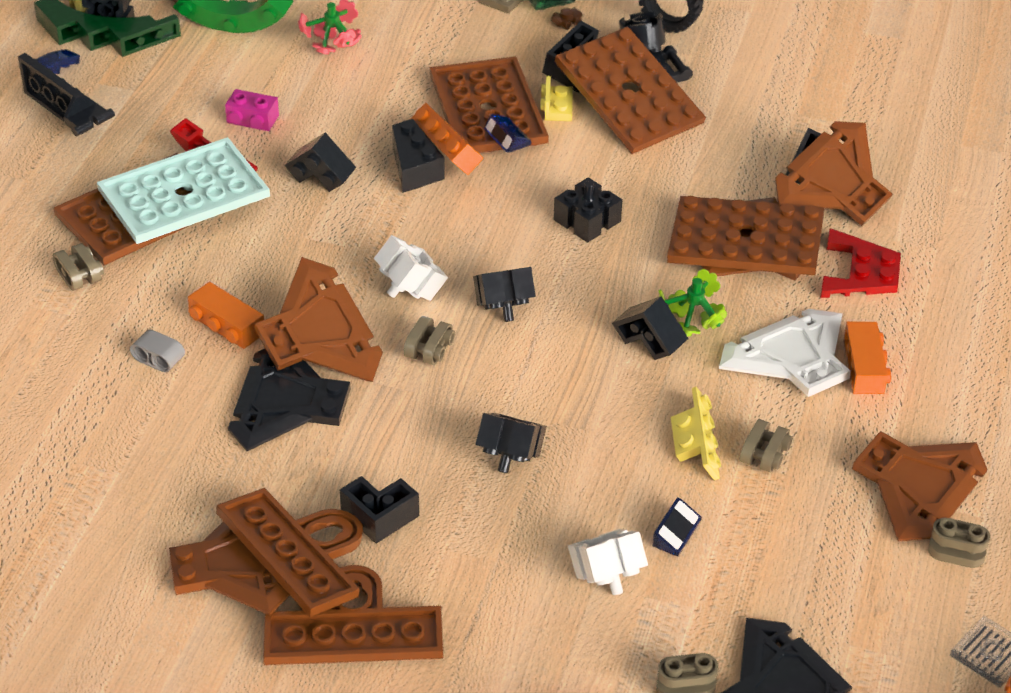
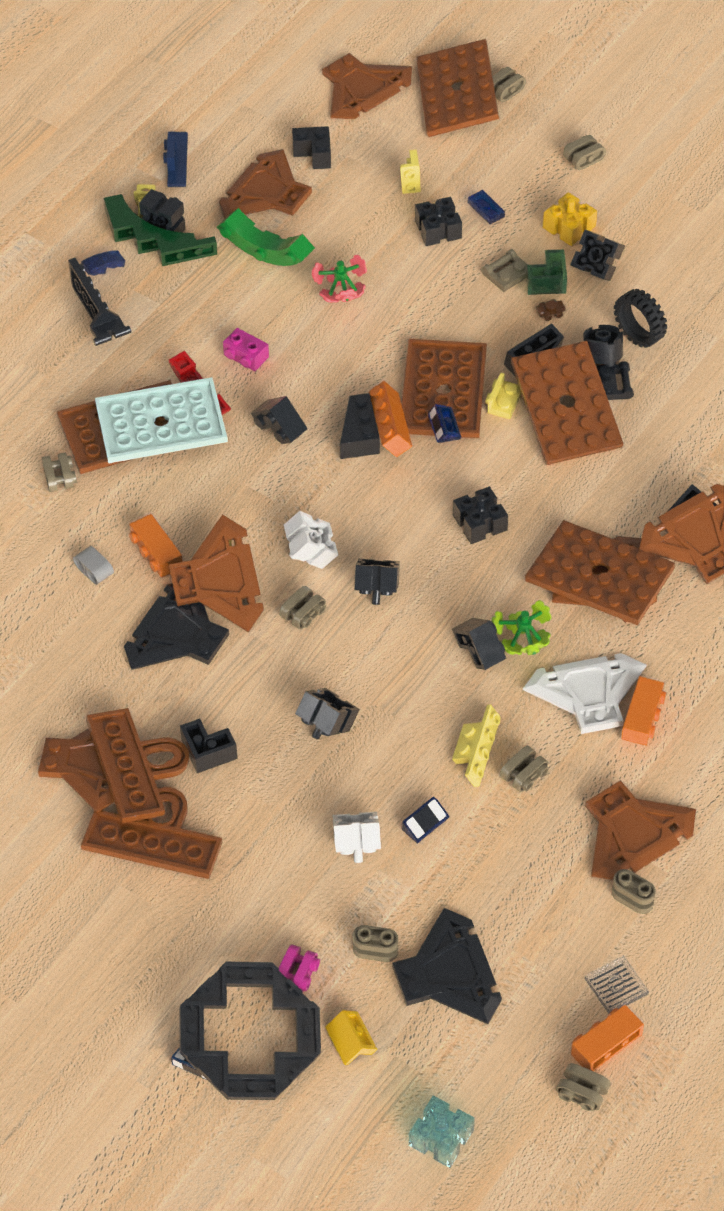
camera: 20 degrees right, 10 degrees up
(871, 270) = (693, 629): red wing -> none

